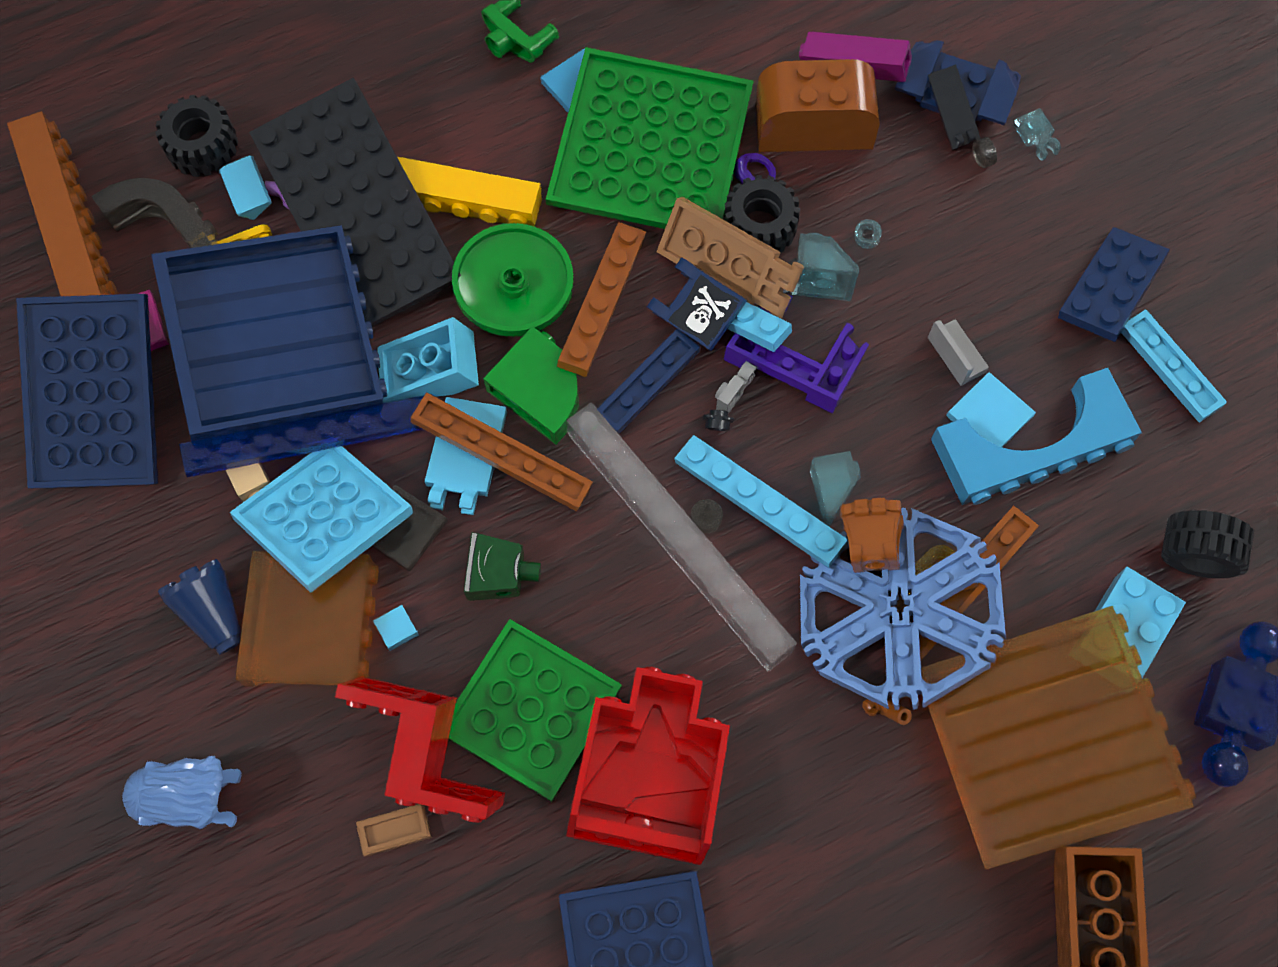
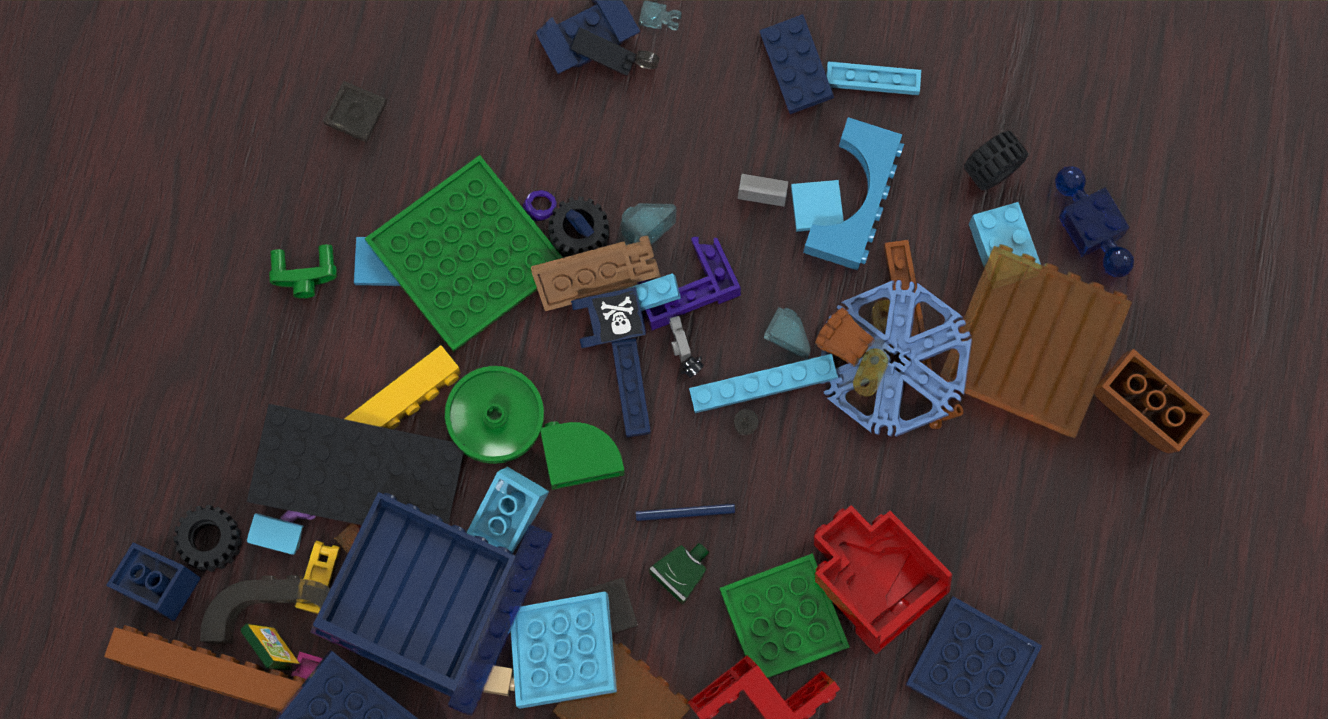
camera: 55 degrees left, 5 degrees up
(124, 127) = (153, 581): none -> dark blue slope
(125, 254) = (270, 647): none -> tile
(395, 627) = (667, 660): medium azure tile -> none
(457, 470) = (585, 533): medium azure tile -> none
(501, 451) = (608, 511): dark orange plate -> none
(565, 529) = (685, 512): none -> dark blue bar
(601, 300) = (554, 370): dark orange plate -> none
(681, 538) = (746, 448): clear brick -> none
(763, 205) = (579, 223): none -> dark blue tile
(817, 106) = (533, 134): dark orange brick -> none
(863, 594) = (869, 371): none -> clear yellow plate
(870, 225) = (645, 169): clear light blue bush -> none
(887, 56) = (516, 79): magenta brick -> none

